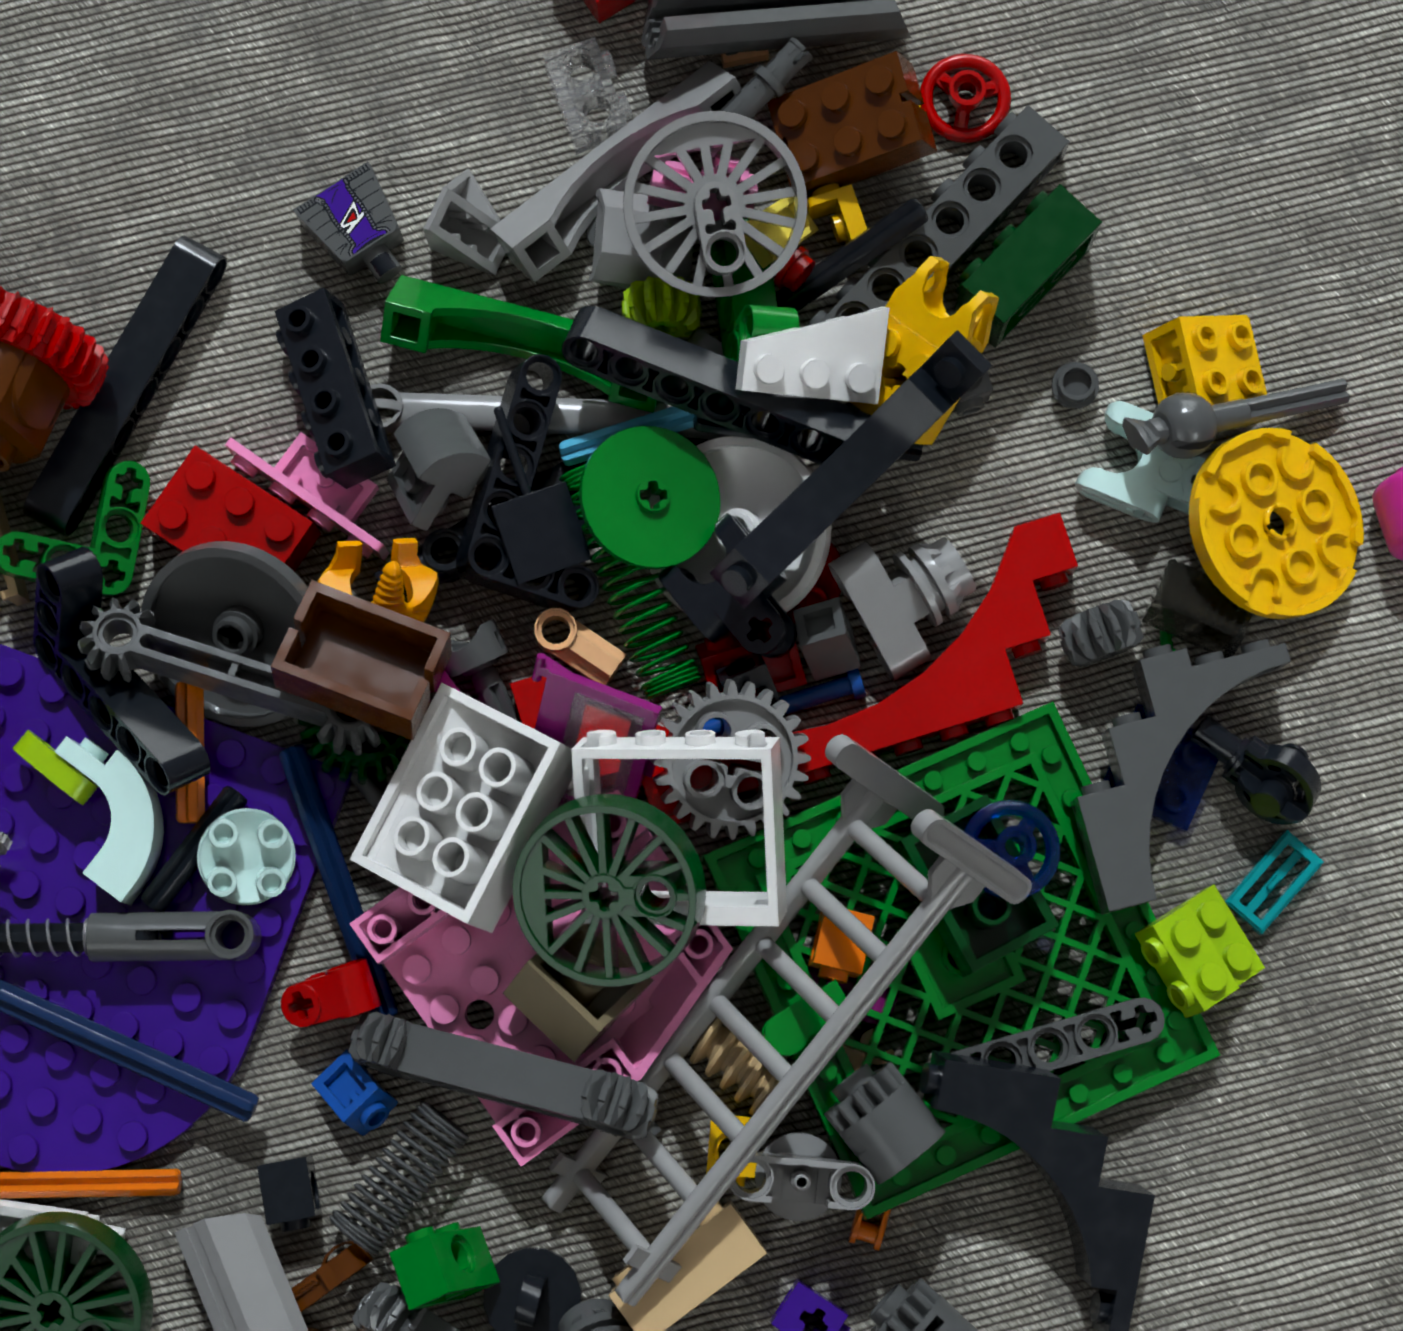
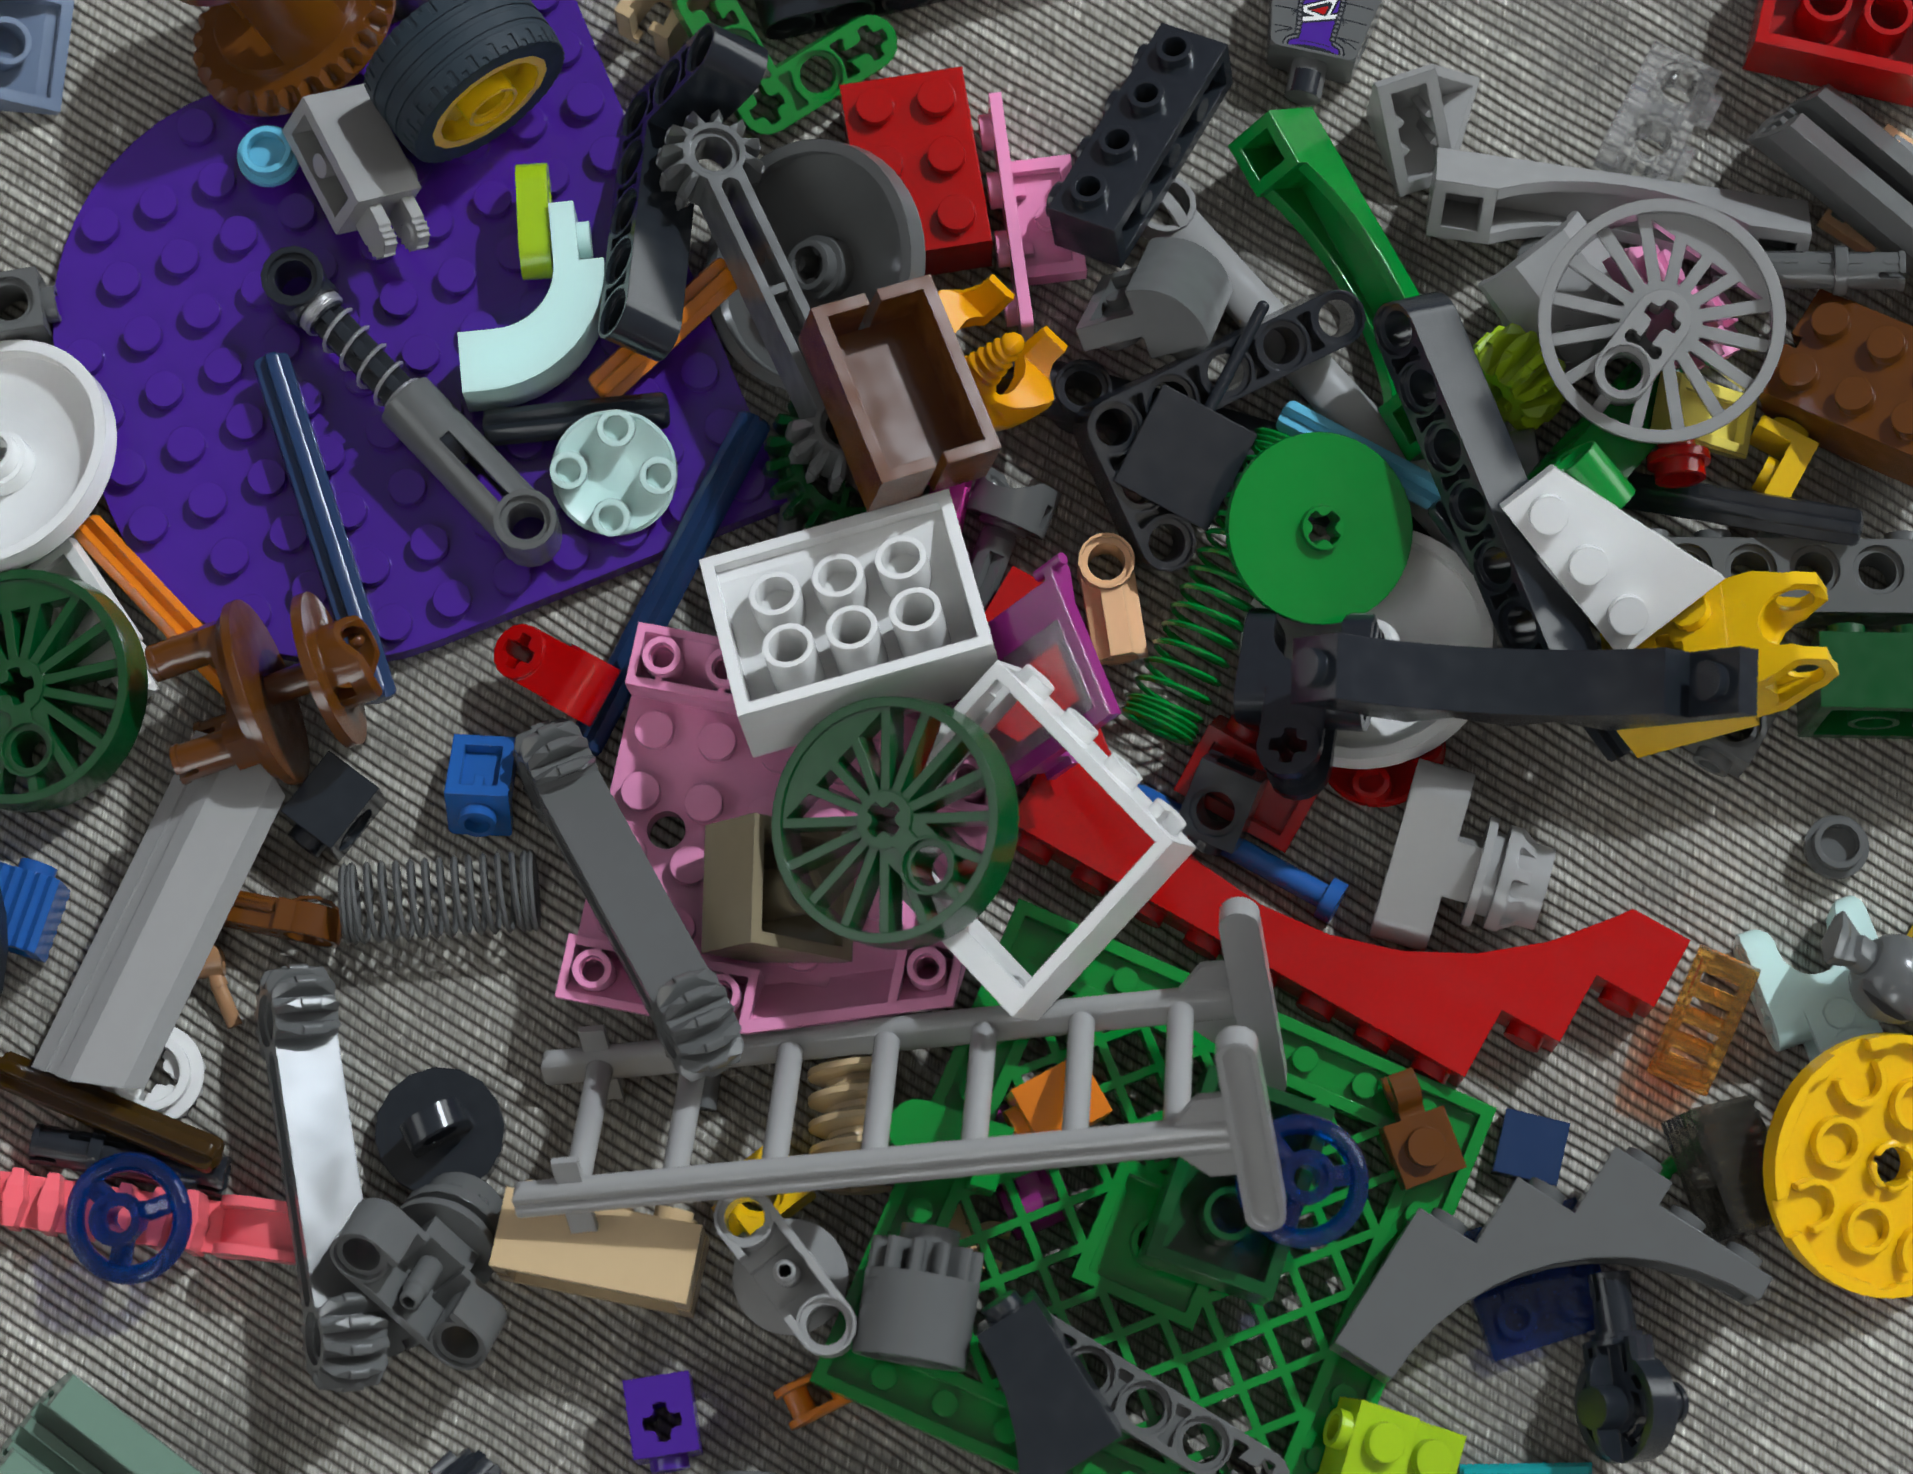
camera: 45 degrees right, 5 degrees down
(201, 1186) = (262, 695): none -> reddish brown piece
(443, 1265) = (393, 1011): green brick -> none
(719, 800) = (1083, 863): light grey gear -> none
(826, 638) = (1345, 828): dark grey brick -> none
(1035, 758) = (1419, 1142): none -> reddish brown plate
(1088, 702) = (1530, 1147): none -> dark blue tile
(1100, 633) = (1609, 1091): dark grey gear -> none
(1120, 574) = (1684, 1071): none -> clear orange slope

